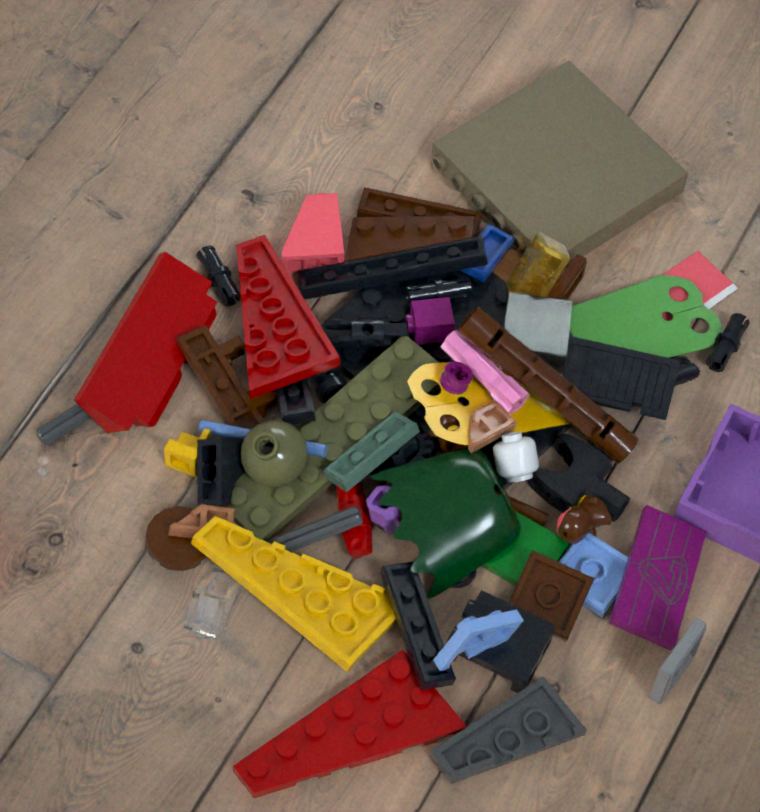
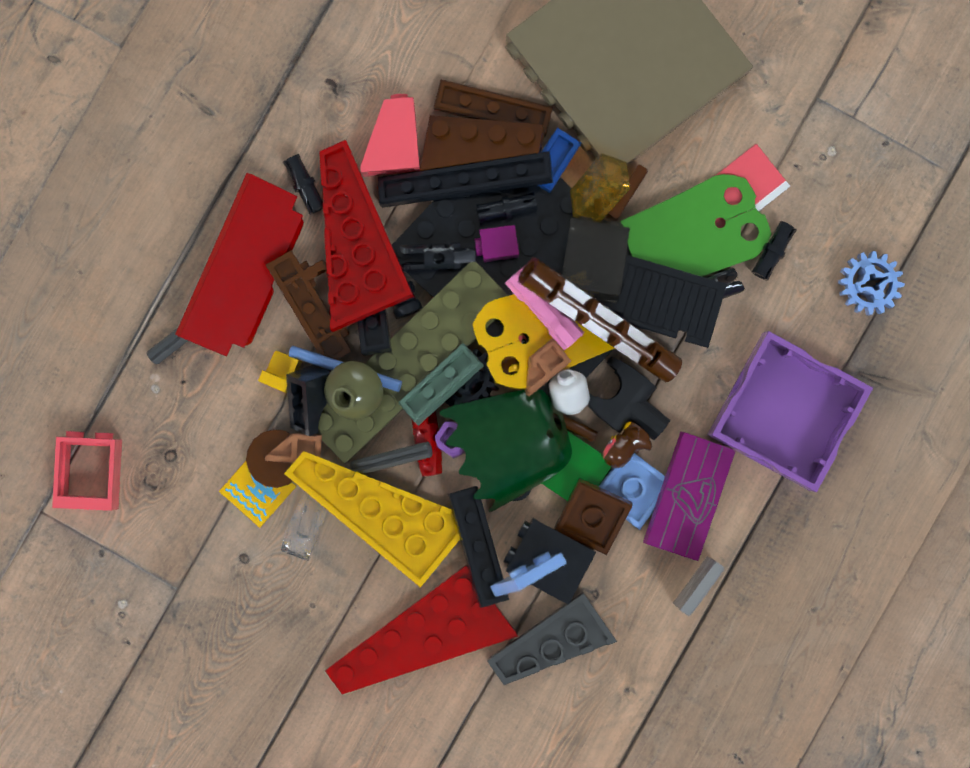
camera: 10 degrees right, 30 degrees up
(151, 581) = (252, 497): none -> yellow sticker
(449, 381) = (511, 323): magenta bush -> none

